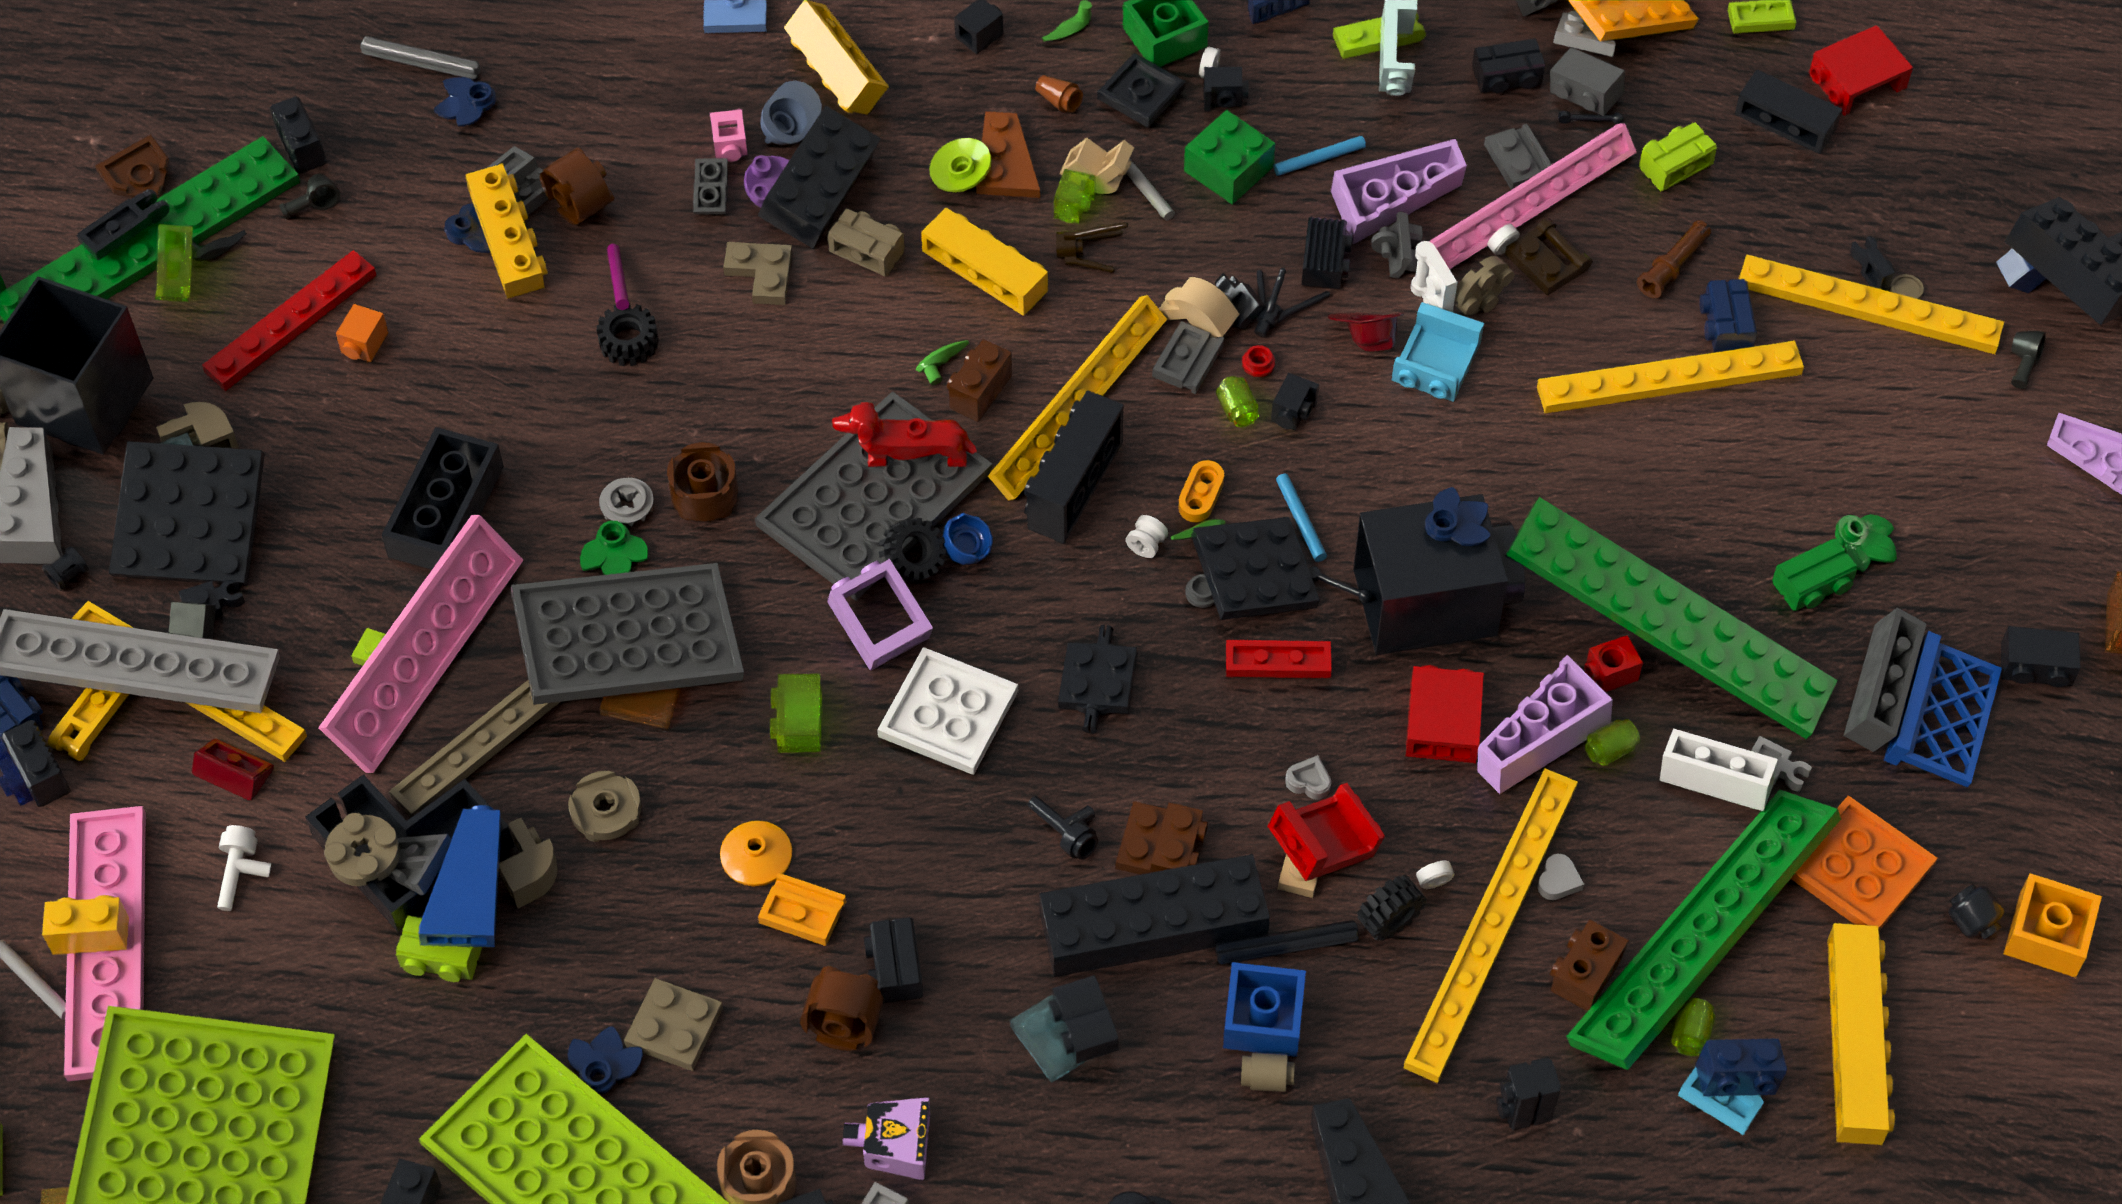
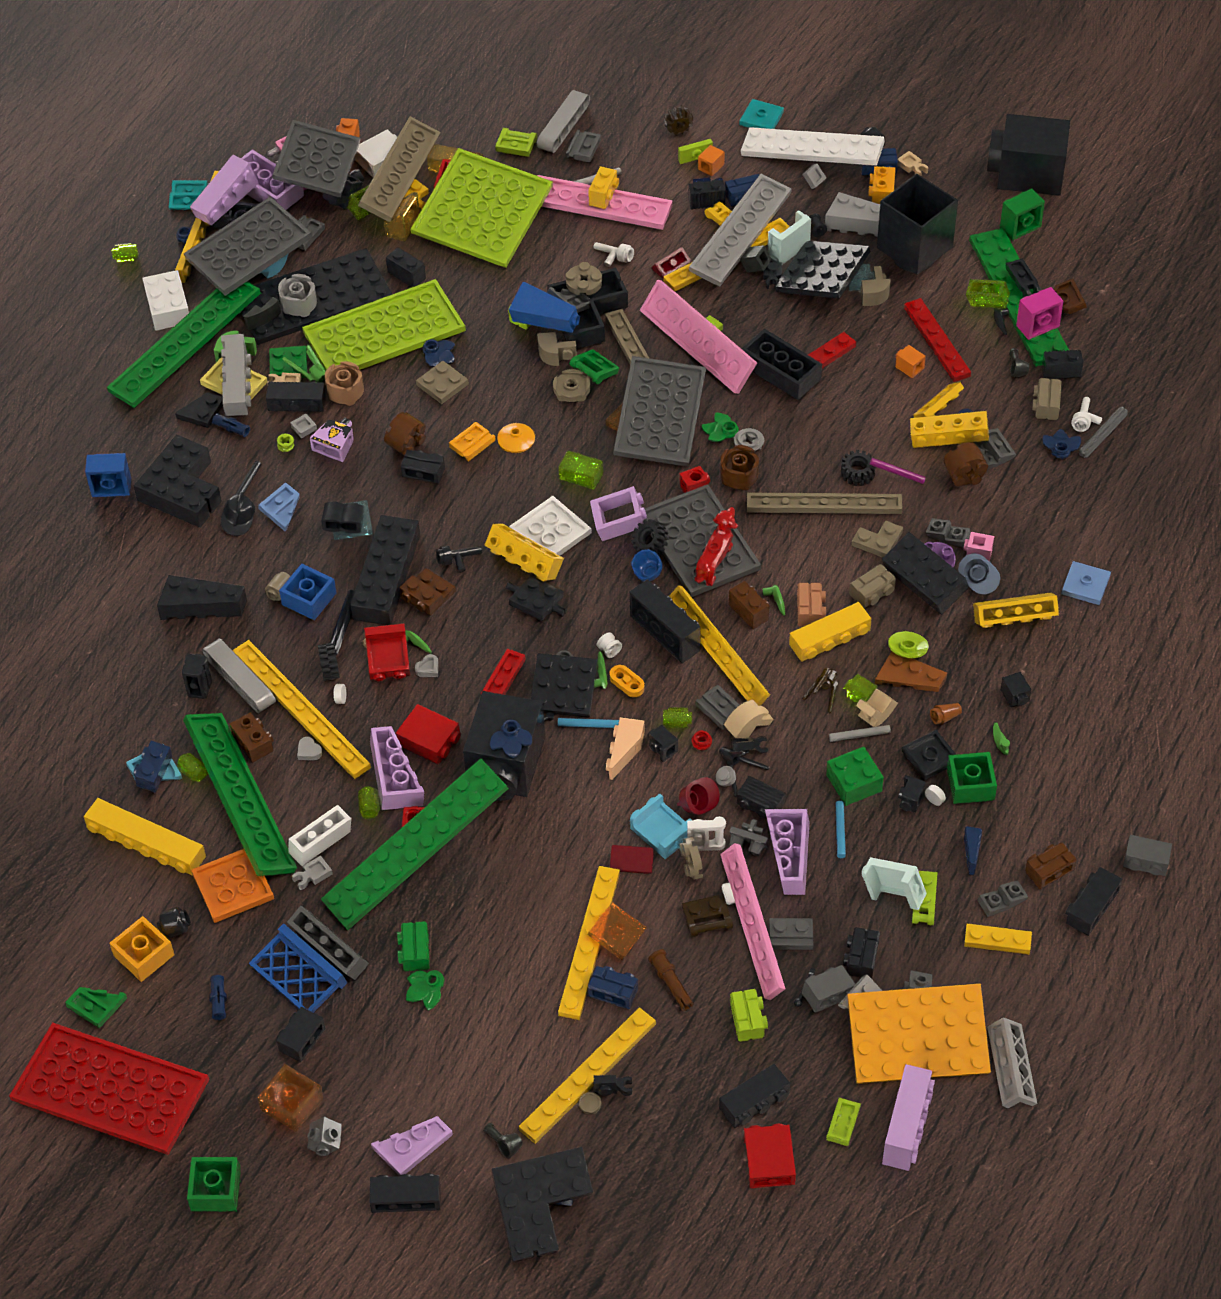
camera: 115 degrees right, 5 degrees down
(113, 568) = (788, 243): none -> light aqua panel
(213, 167) = (1039, 313): none -> dark pink brick
(370, 456) = (833, 349): none -> red plate
(379, 135) = (1048, 399): none -> dark tan brick
(414, 83) = (1082, 420): none -> white piece
(439, 271) = (939, 401): none -> yellow plate
(539, 778) = (597, 362): none -> green plate
(723, 357) = (824, 503): none -> dark tan plate
(758, 552) = (693, 479): none -> red brick
(939, 307) = (810, 603): none -> nougat brick
(1023, 718) = (524, 552): none -> yellow brick
(1085, 1157) = (280, 505): none -> medium blue wing
(1262, 831) = (416, 640): none -> bright green bar
(1309, 307) = (725, 776): none -> light grey plate
(1321, 446) = (627, 744): none -> light nougat slope
(1479, 1047) = (239, 675): none -> light grey beam
(1510, 374) = (632, 859): none -> dark red slope
(1642, 341) = (617, 931): none -> clear orange plate
(2052, 794) = (218, 1009): none -> dark blue pin

